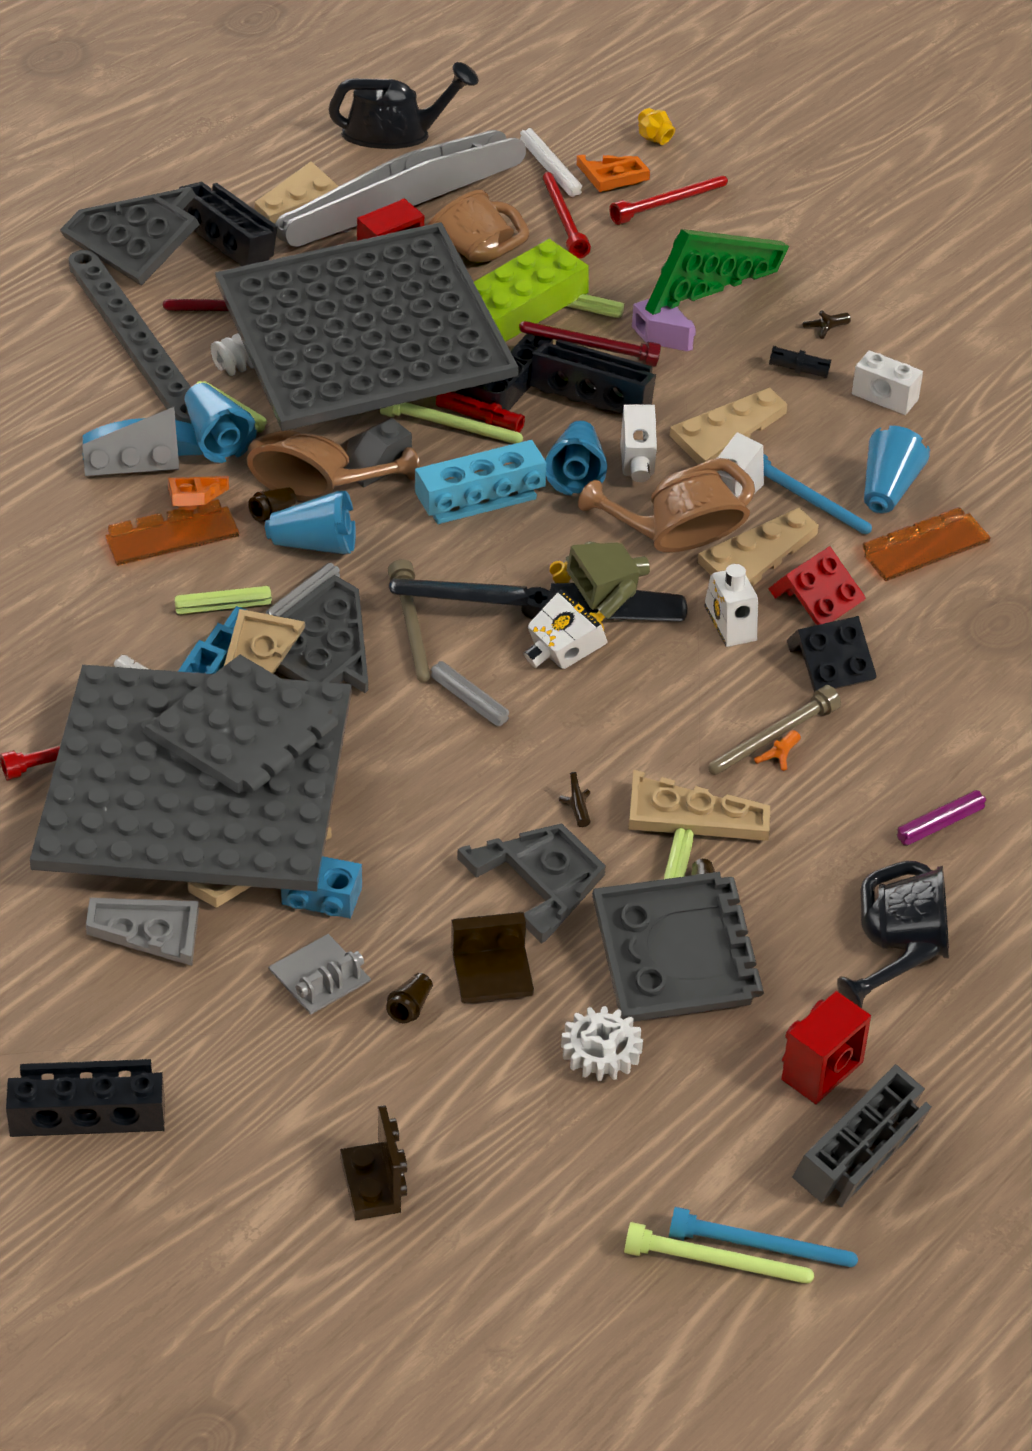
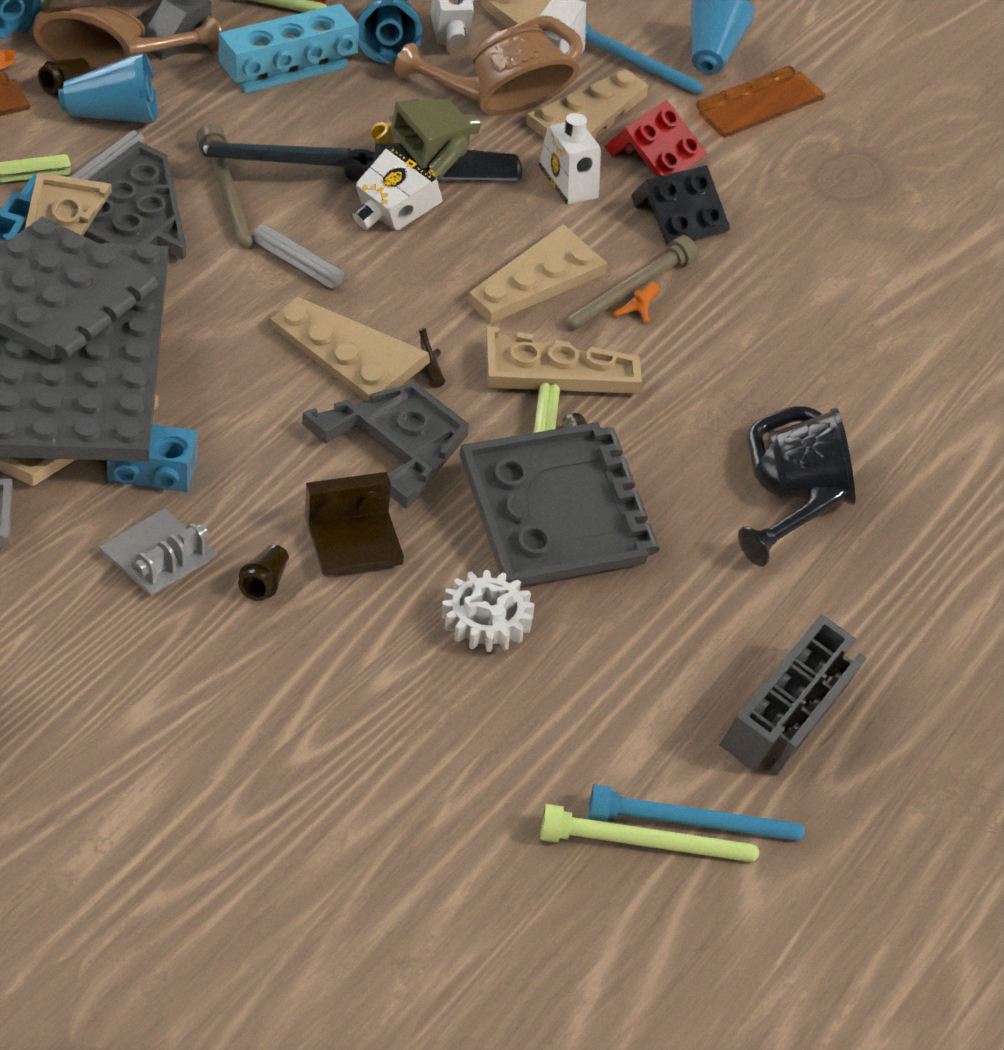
camera: 10 degrees left, 0 degrees up
(376, 1172) = (245, 764): dark brown bracket -> none
(505, 788) = (347, 349): none -> tan wing
(692, 716) = (539, 273): none -> tan wing
(825, 1046) = (738, 600): red brick -> none
(941, 817) = (820, 364): magenta axle -> none

